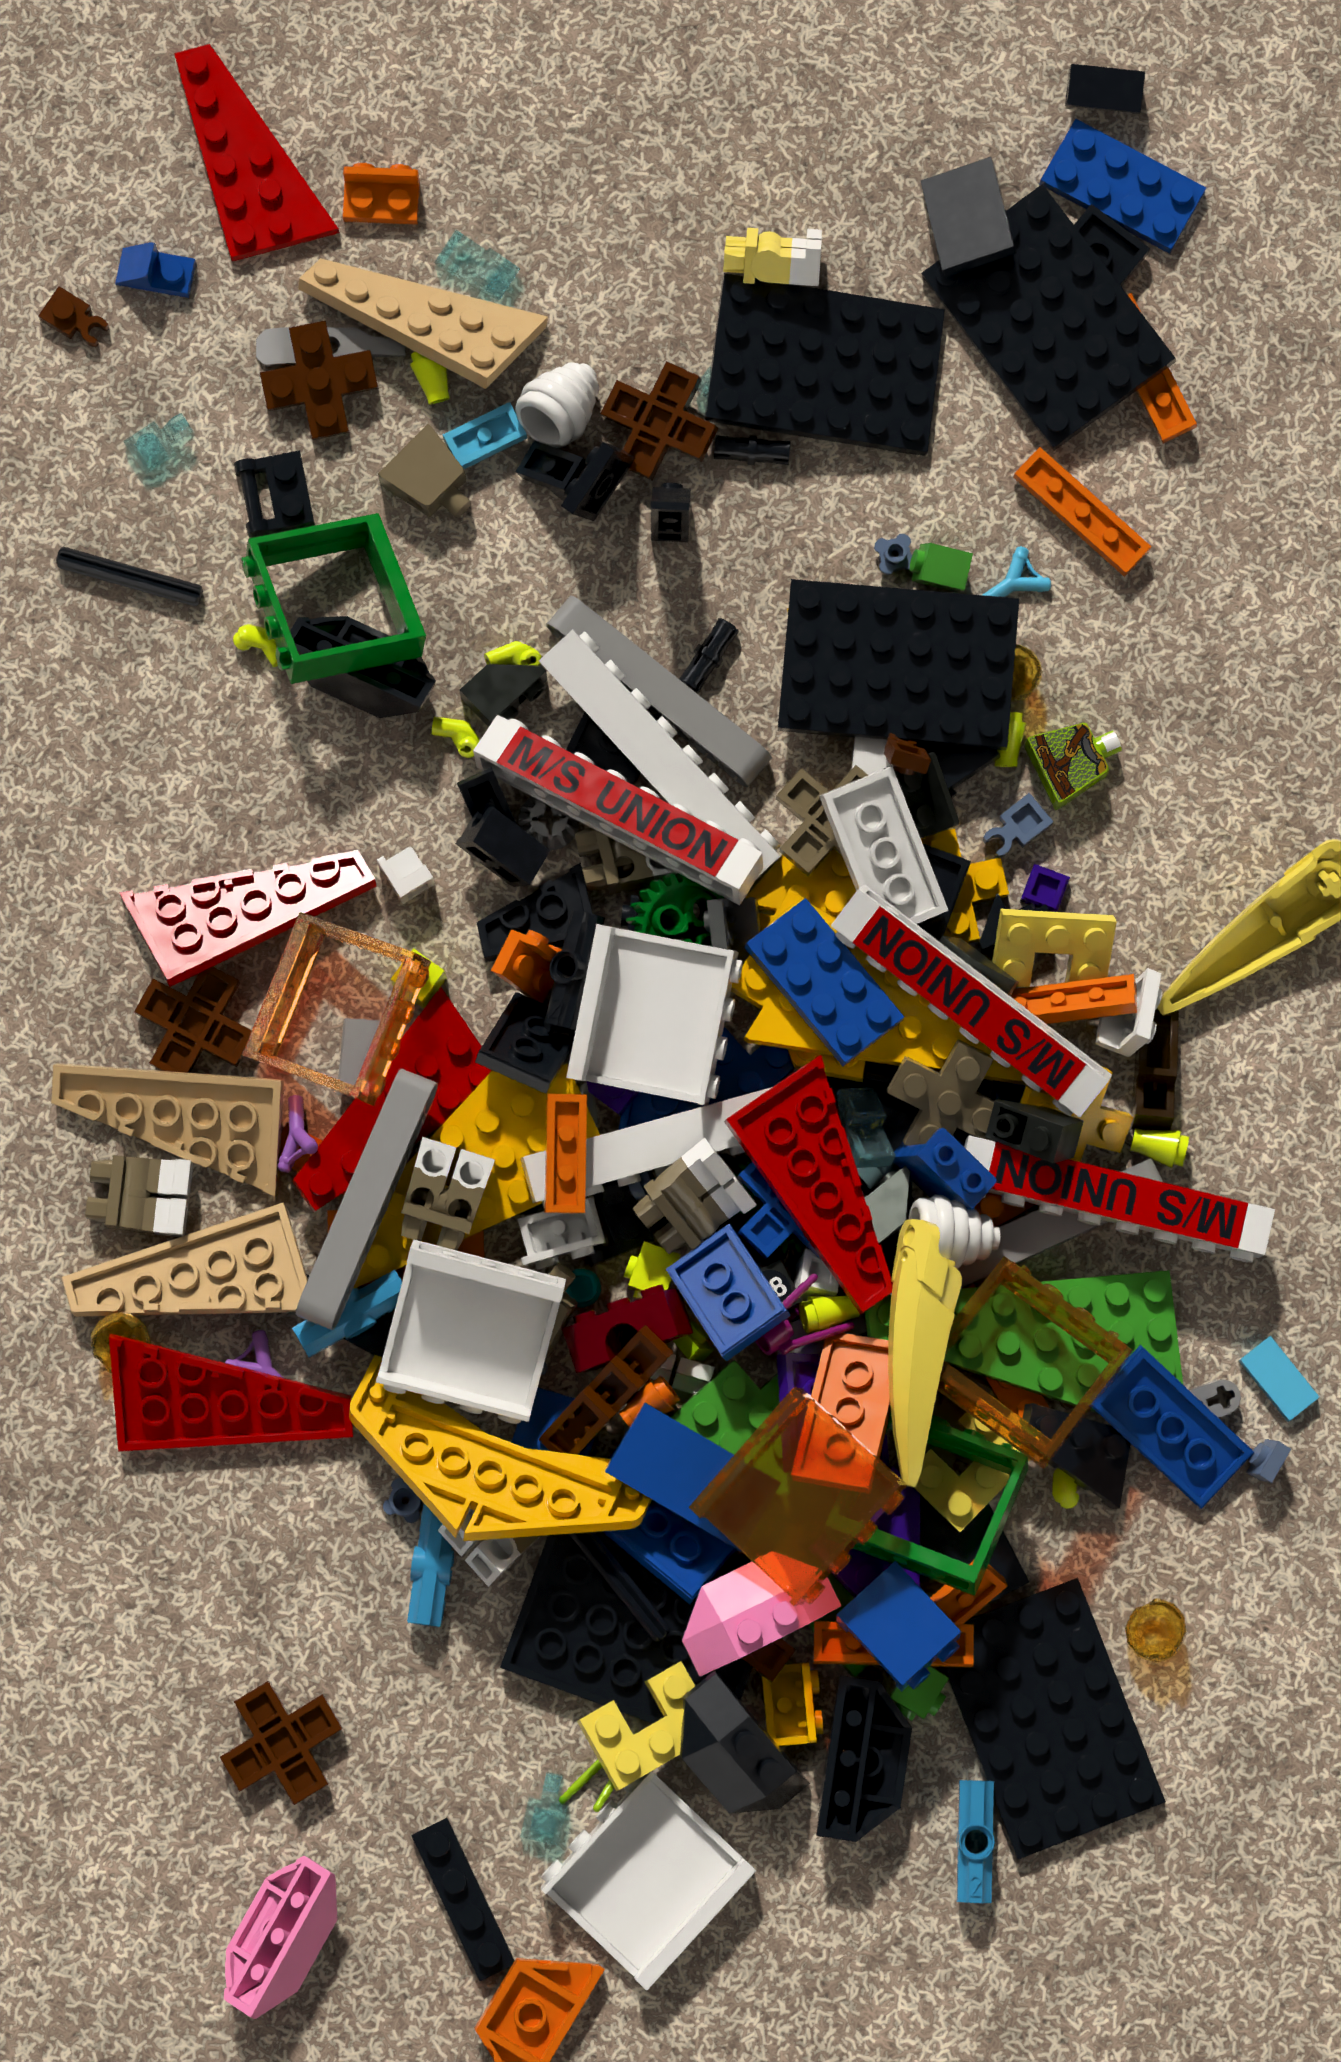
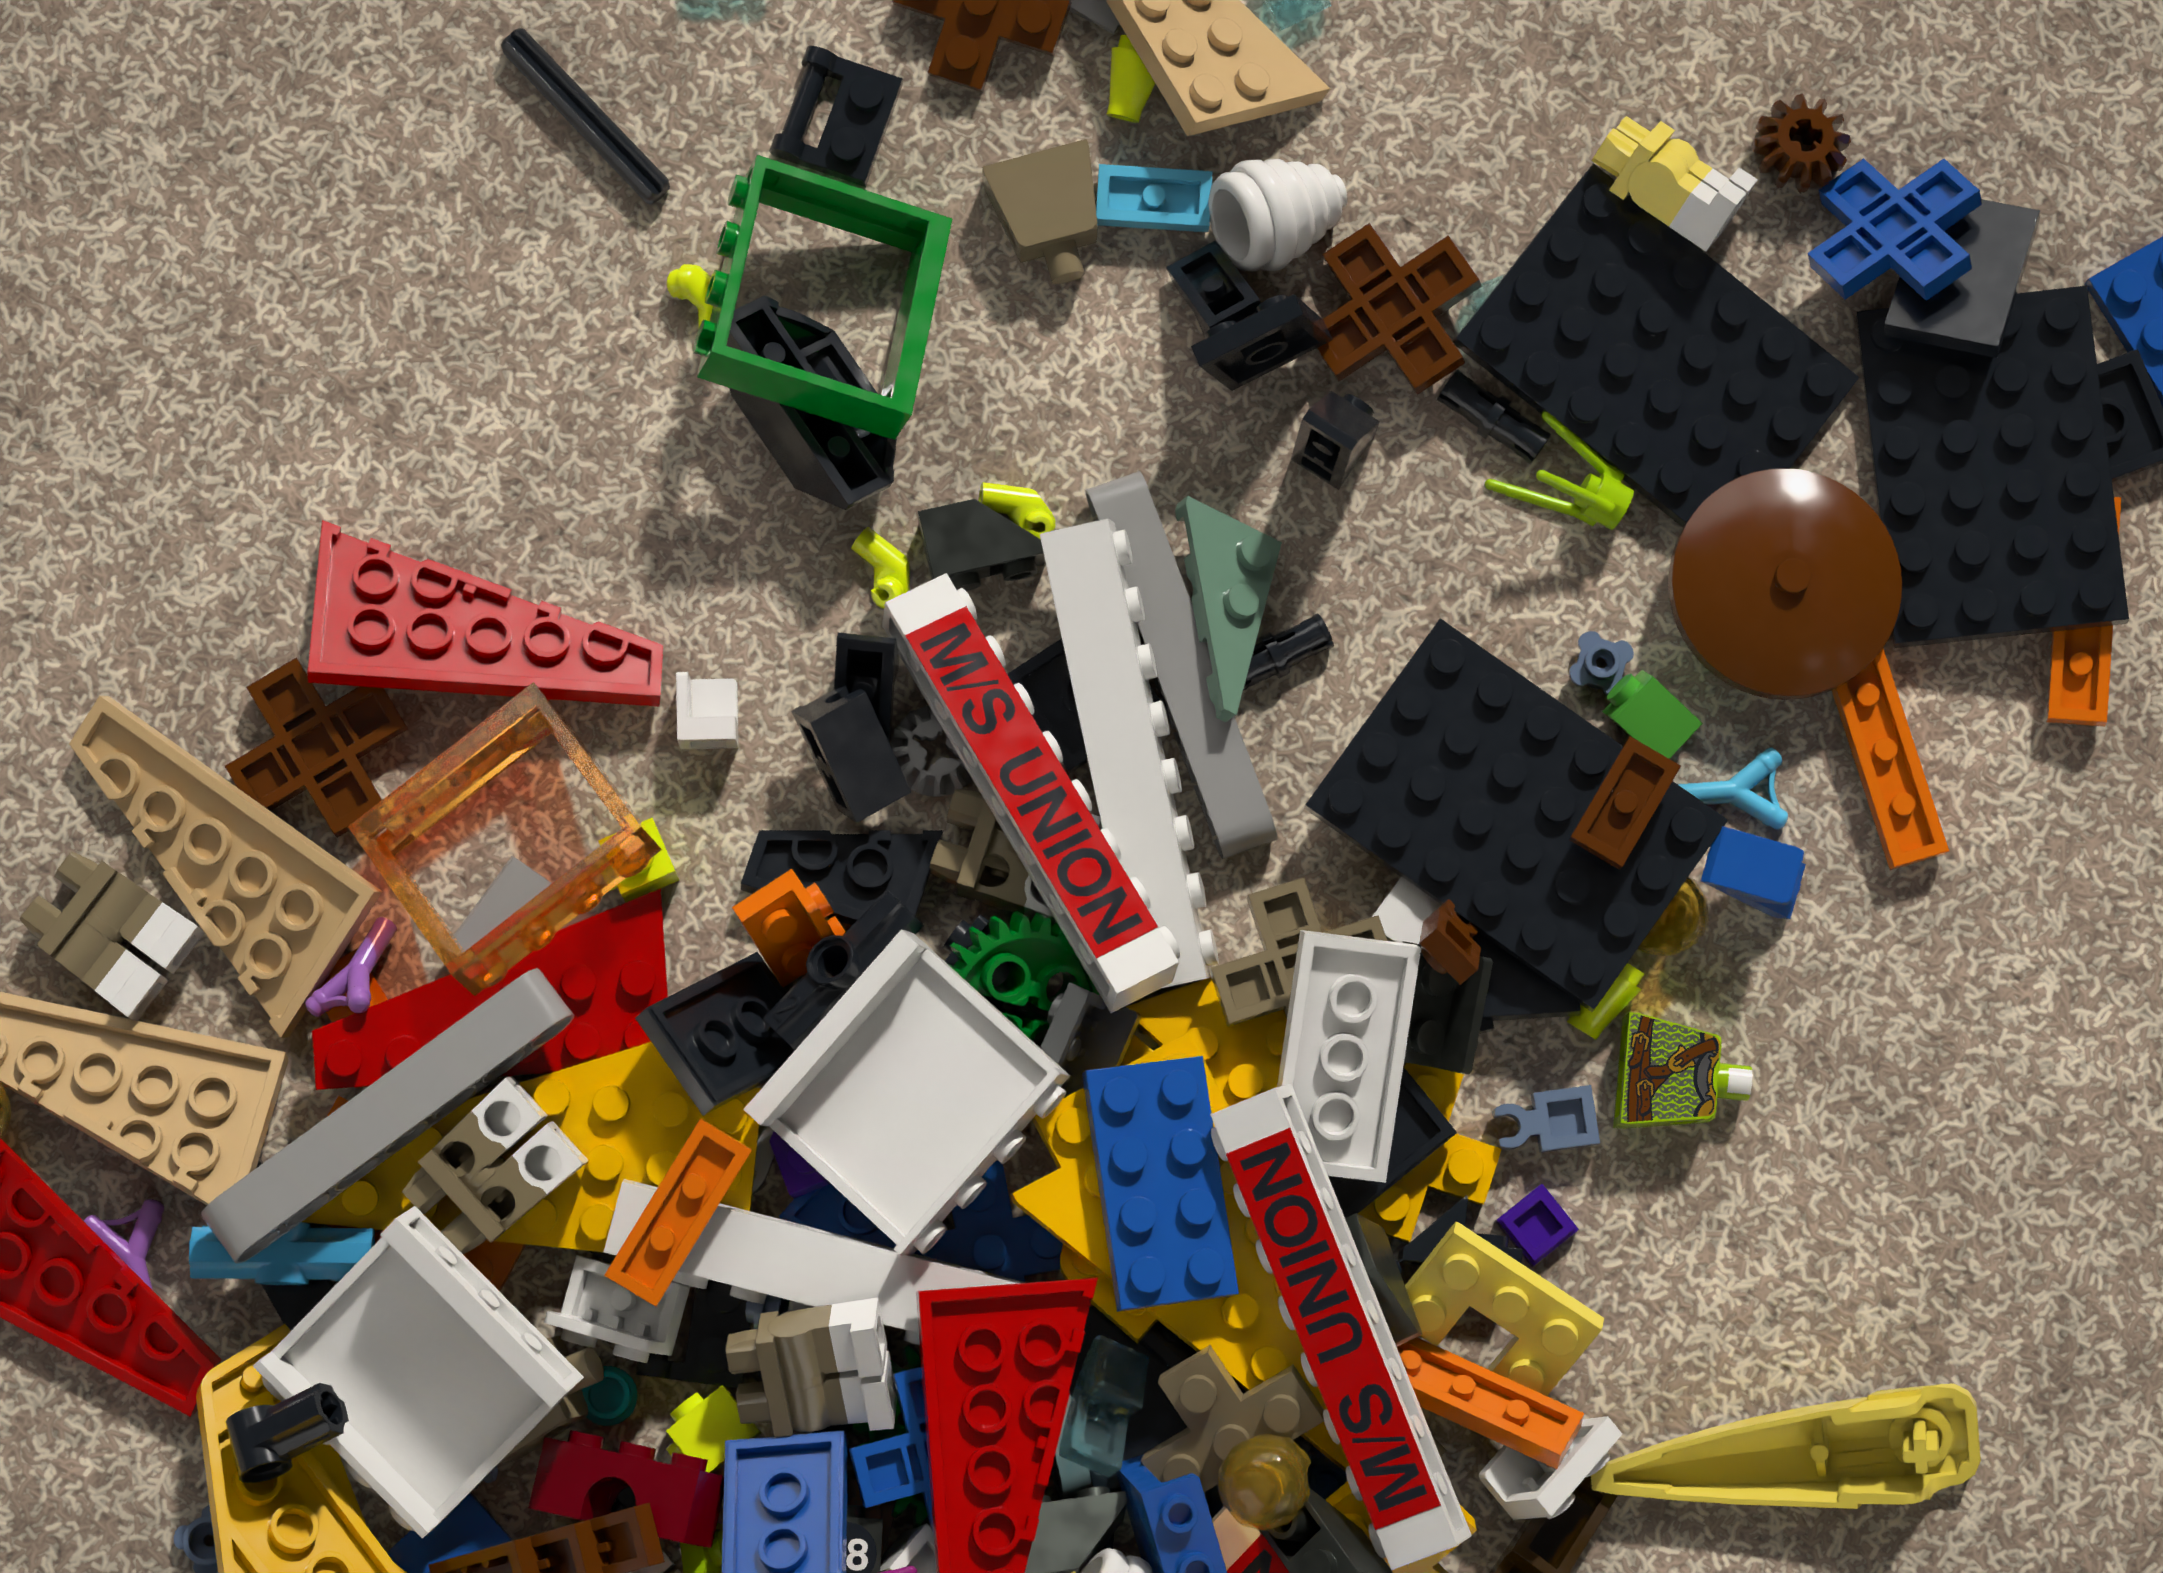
camera: 25 degrees right, 0 degrees up
(410, 1414) = (271, 1435): none -> black piece
(659, 626) = (1230, 582): none -> sand green wing
(830, 206) = (1787, 155): none -> reddish brown gear
(837, 462) = (1595, 500): none -> lime plant
(916, 213) = (1895, 229): none -> blue plate
(957, 621) = (1625, 803): none -> reddish brown plate
(972, 449) = (1785, 584): none -> reddish brown dish
(981, 1110) = (1264, 1481): none -> clear yellow hair
(1051, 619) = (1755, 871): none -> blue slope

